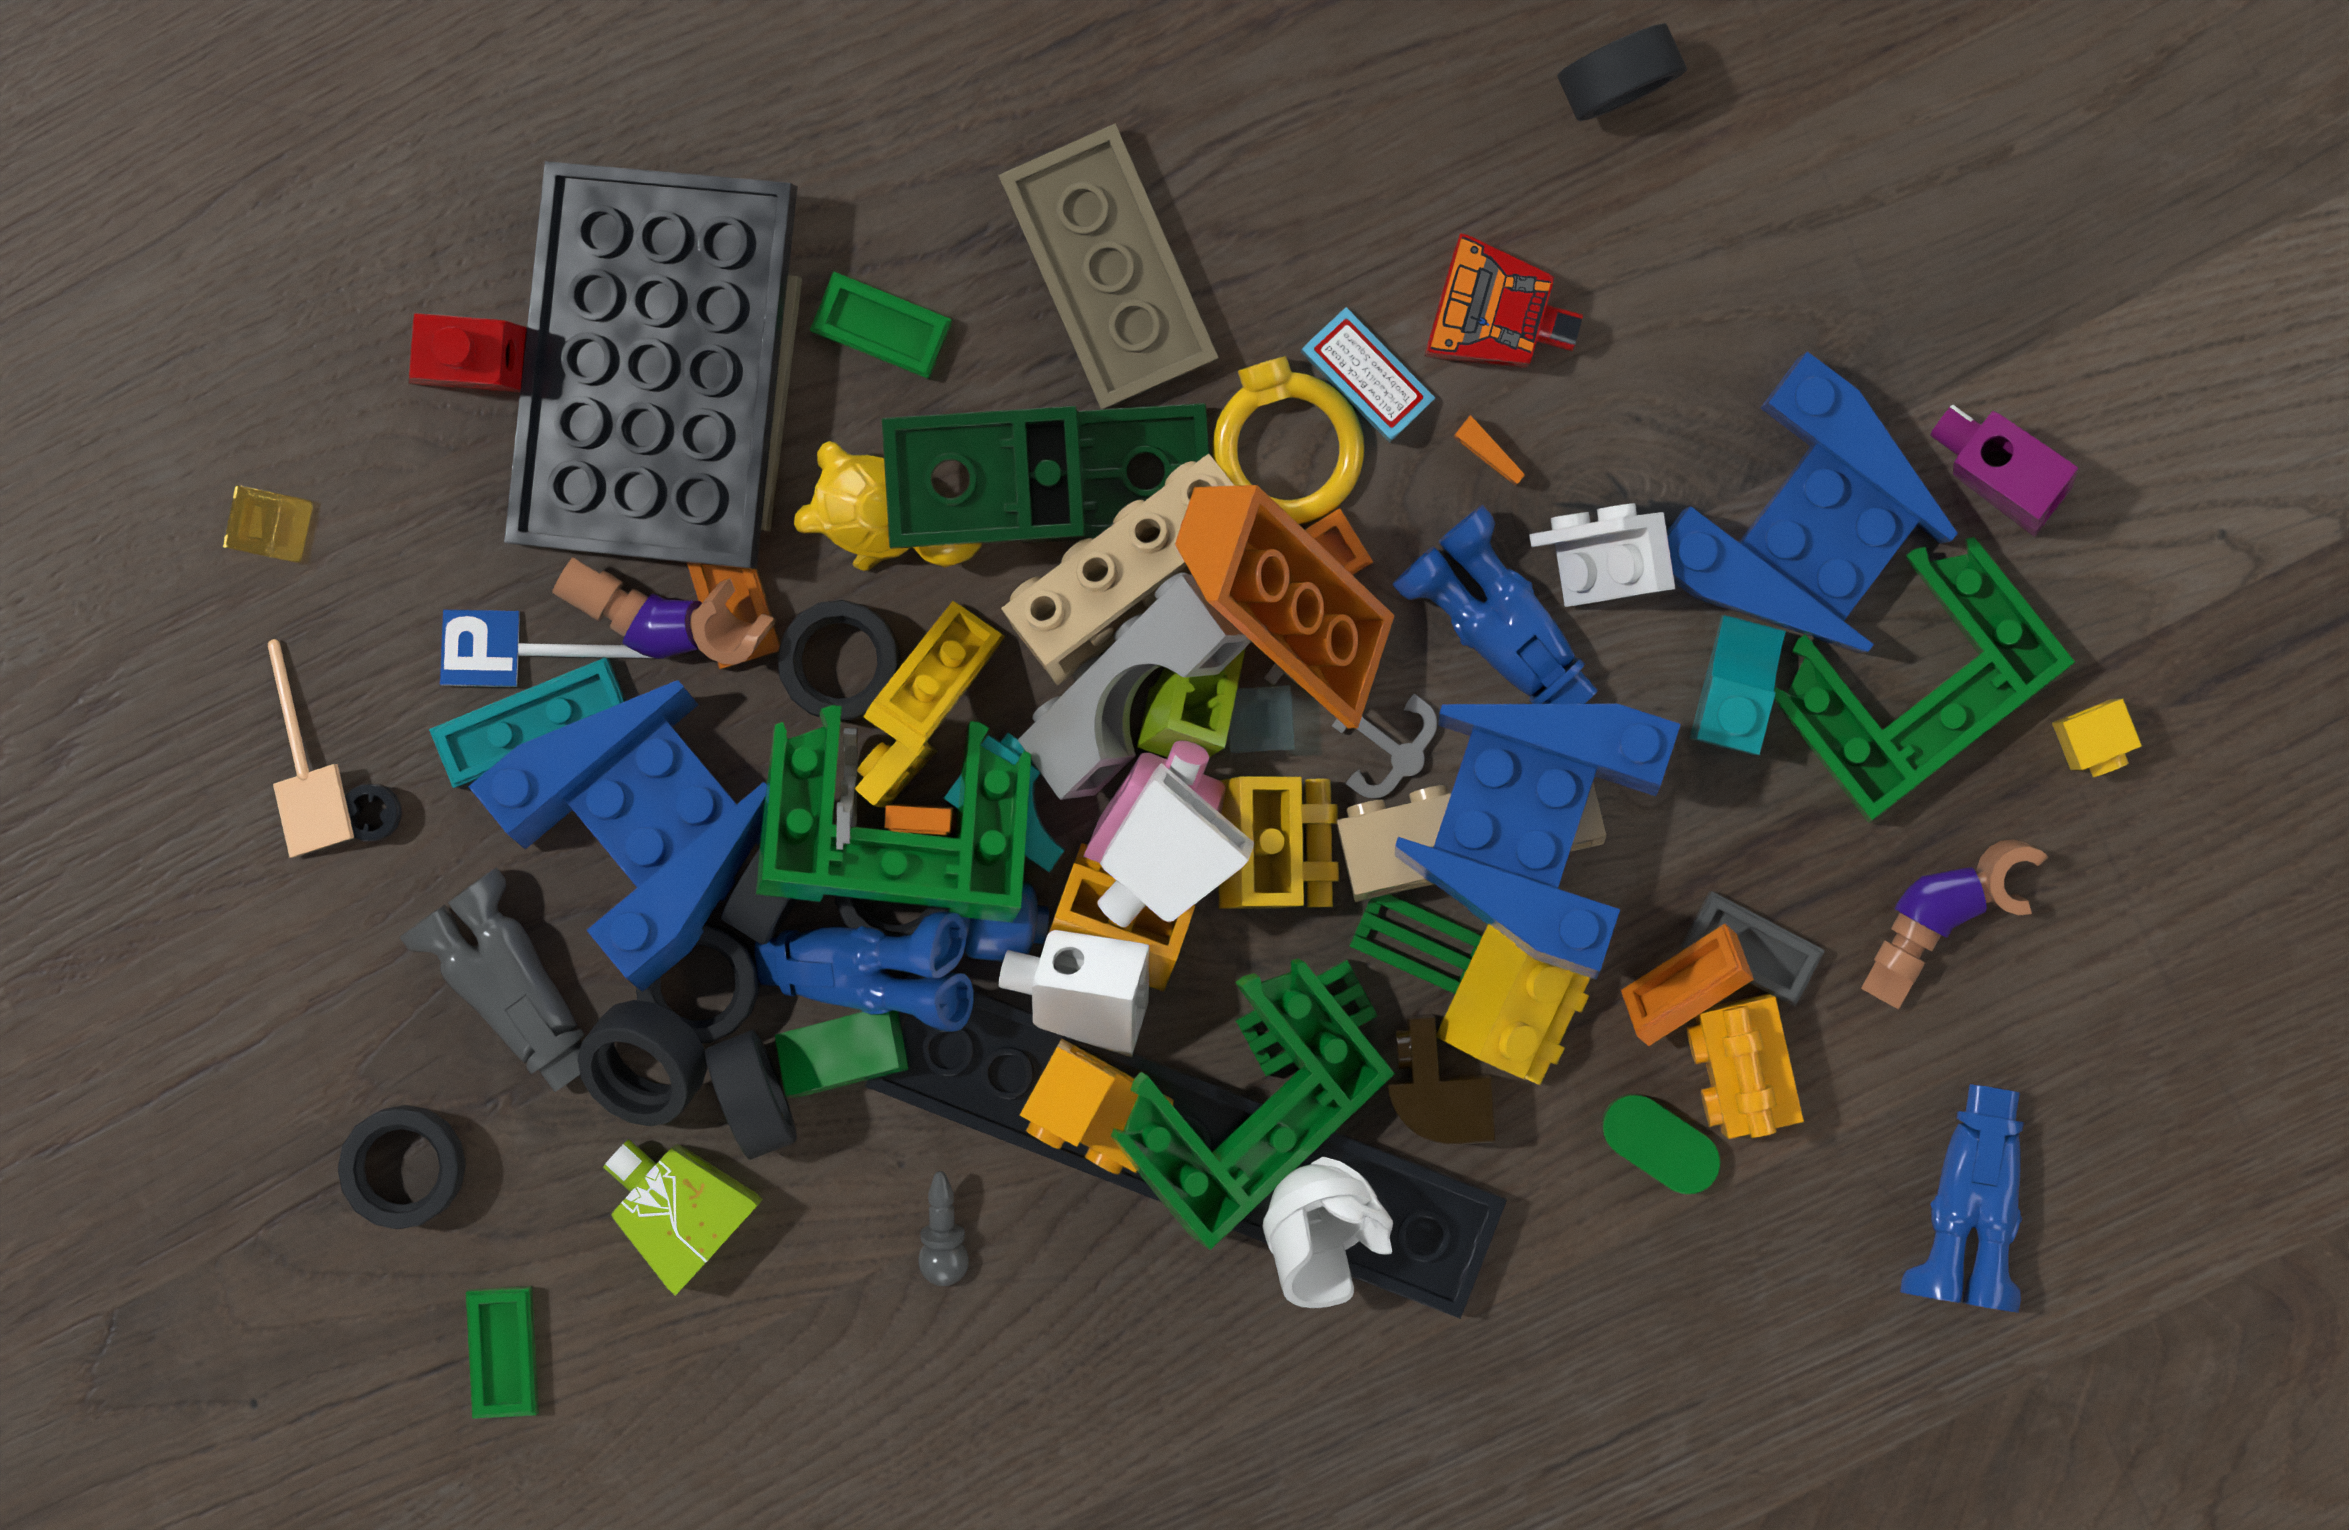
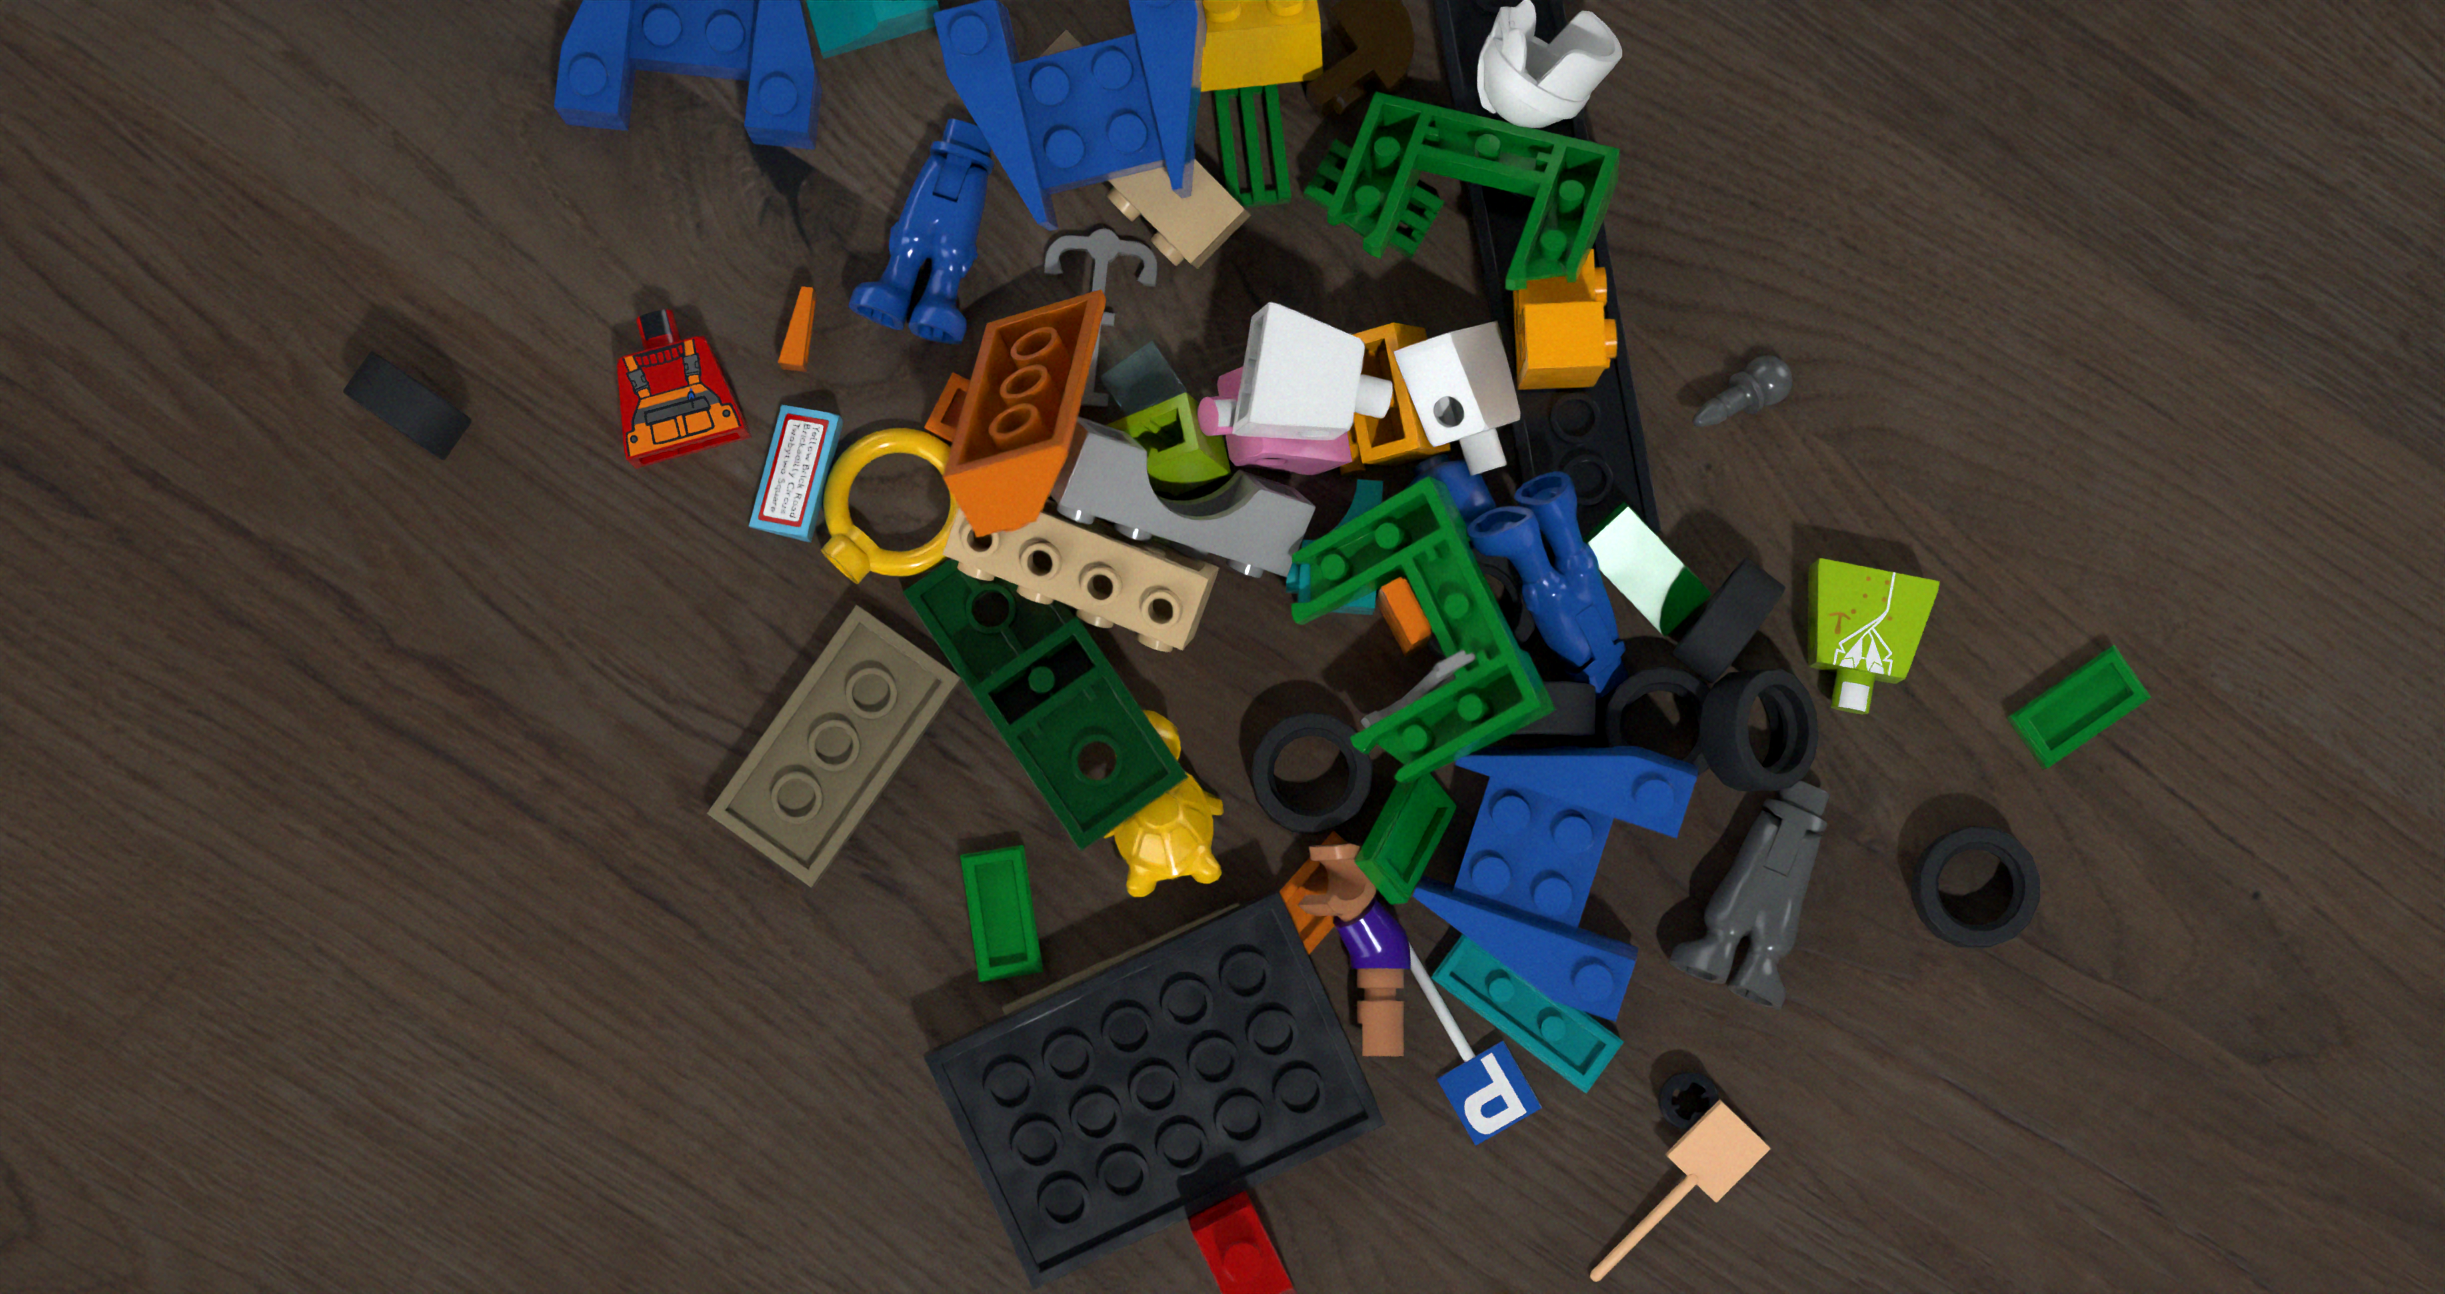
camera: 125 degrees left, 5 degrees down
(731, 704) = (1405, 837): none -> green tile
(890, 770) = (1377, 670): yellow bracket -> none
(934, 677) = (1276, 676): yellow tile -> none
(1272, 817) = (1219, 301): yellow brick -> none
(1609, 557) = (829, 169): white bracket -> none

